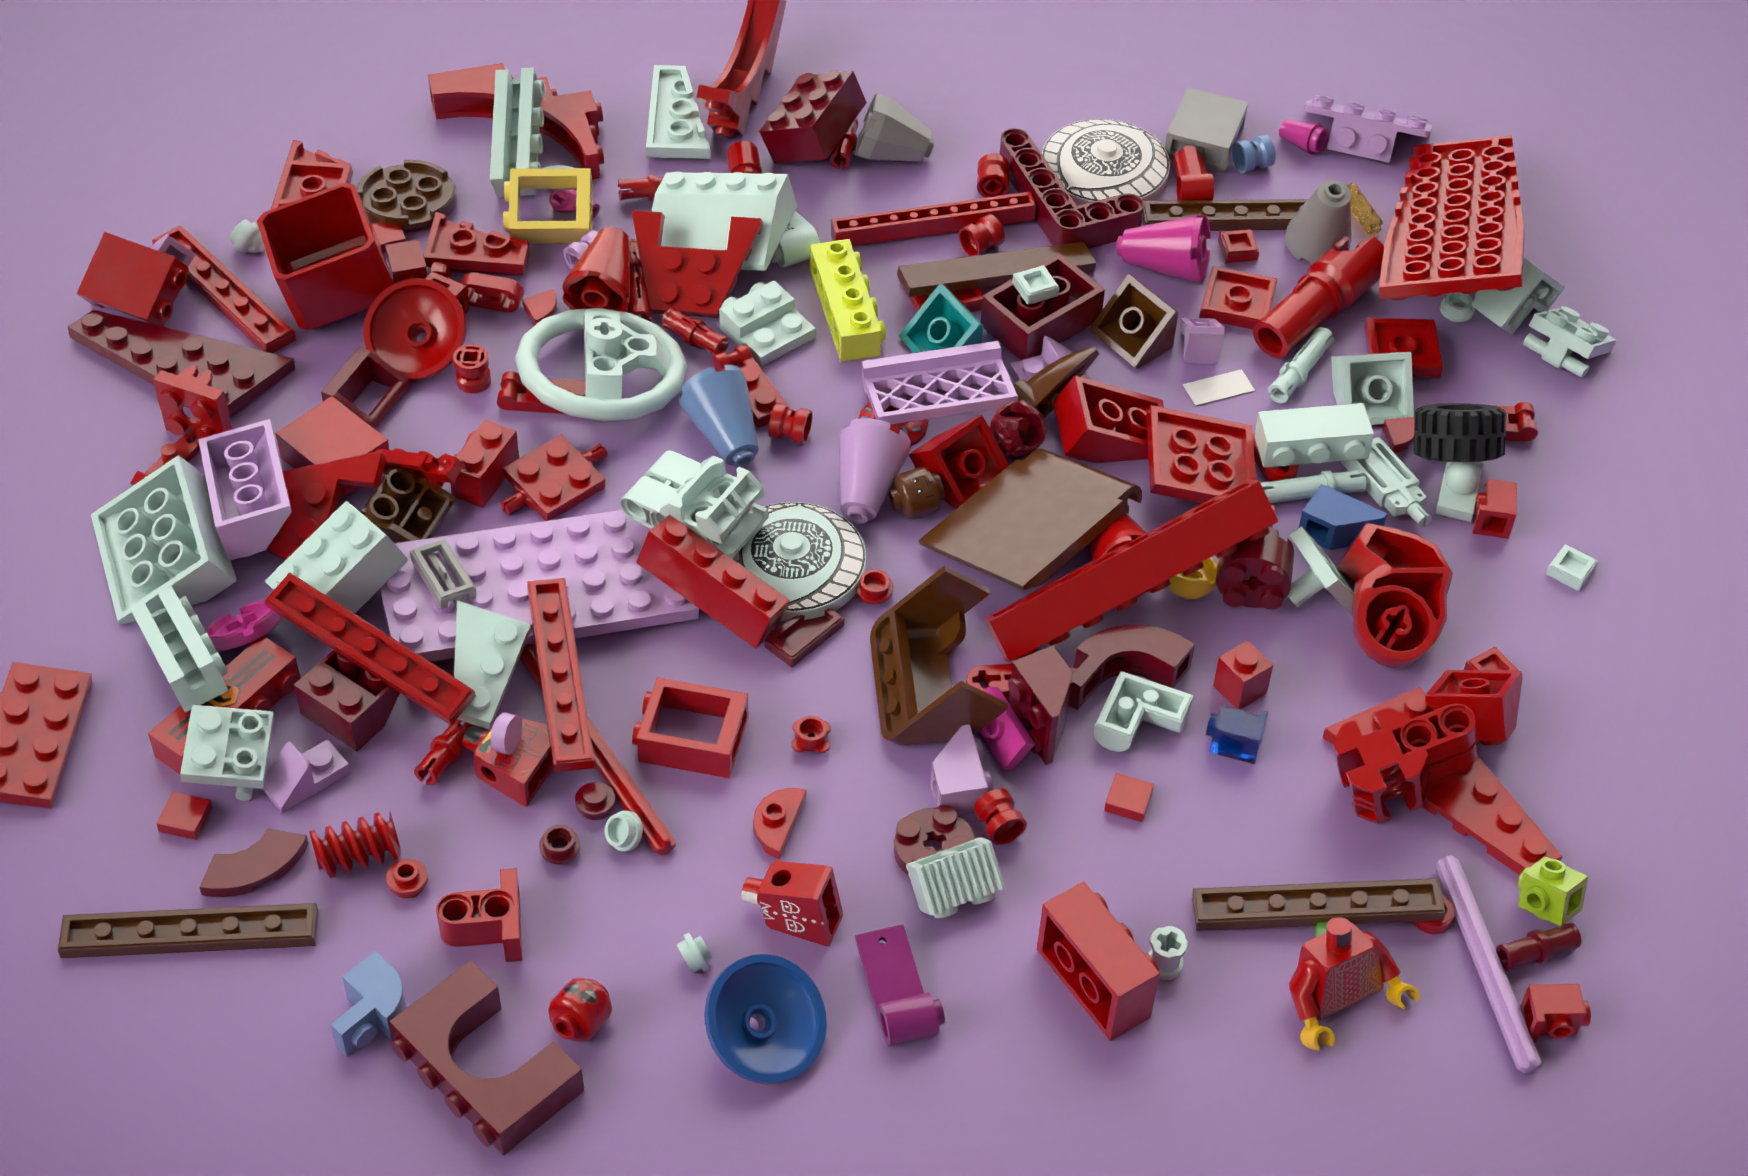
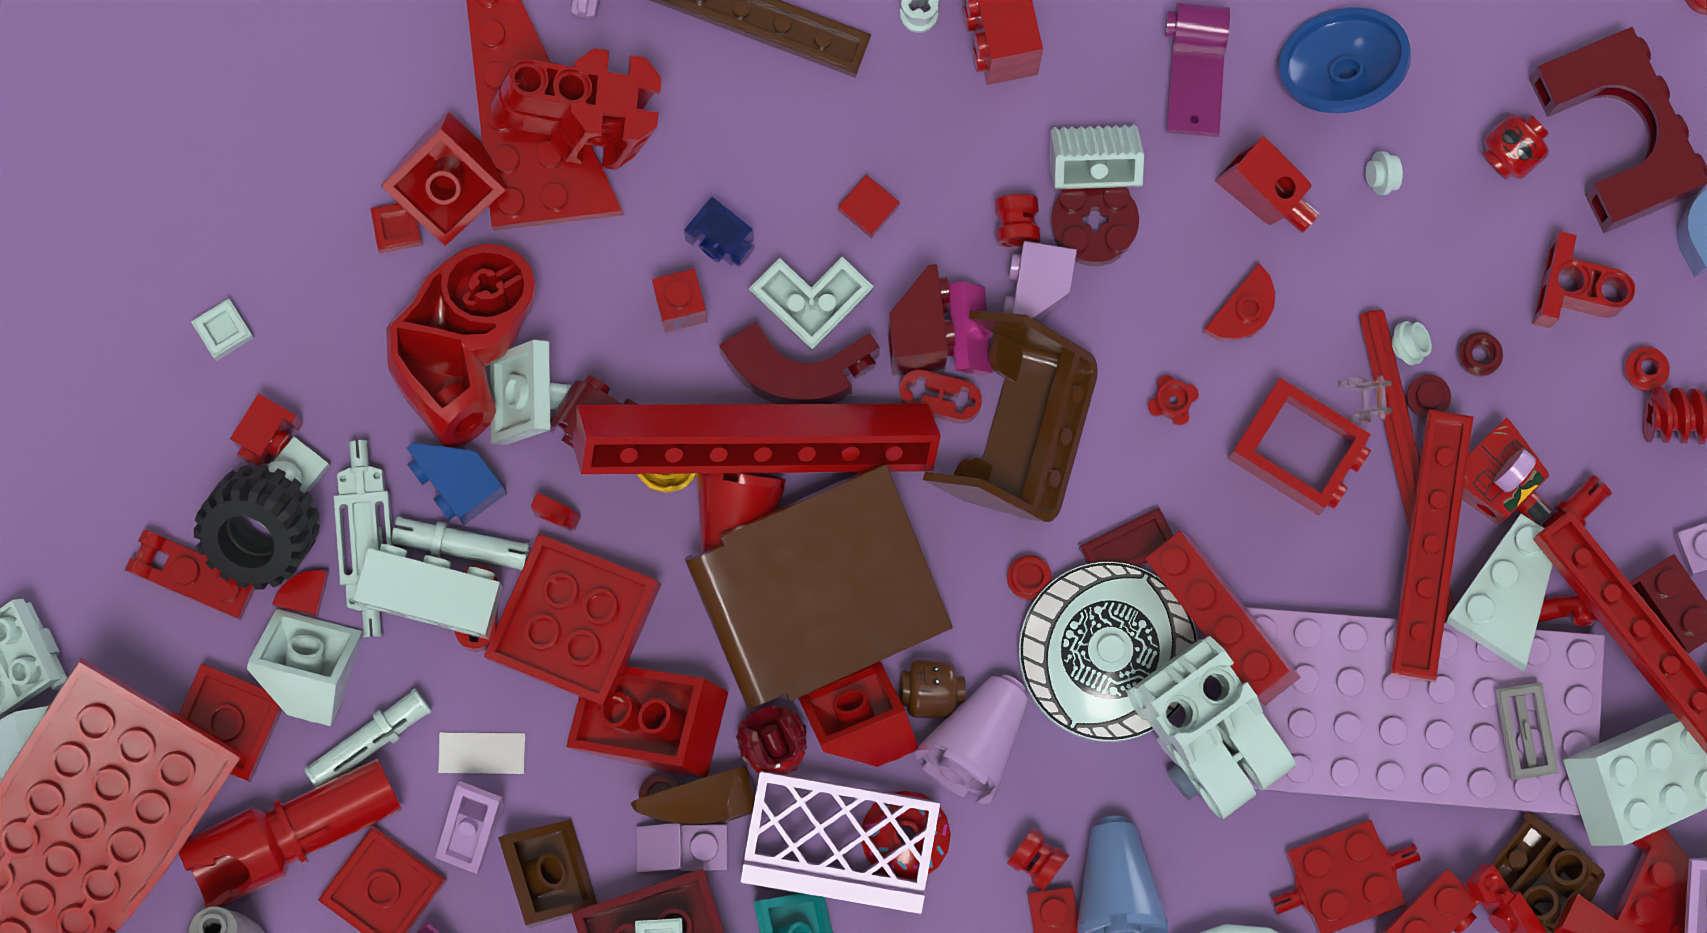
camera: 160 degrees left, 30 degrees up
(648, 784) = (1364, 416): none -> clear piece

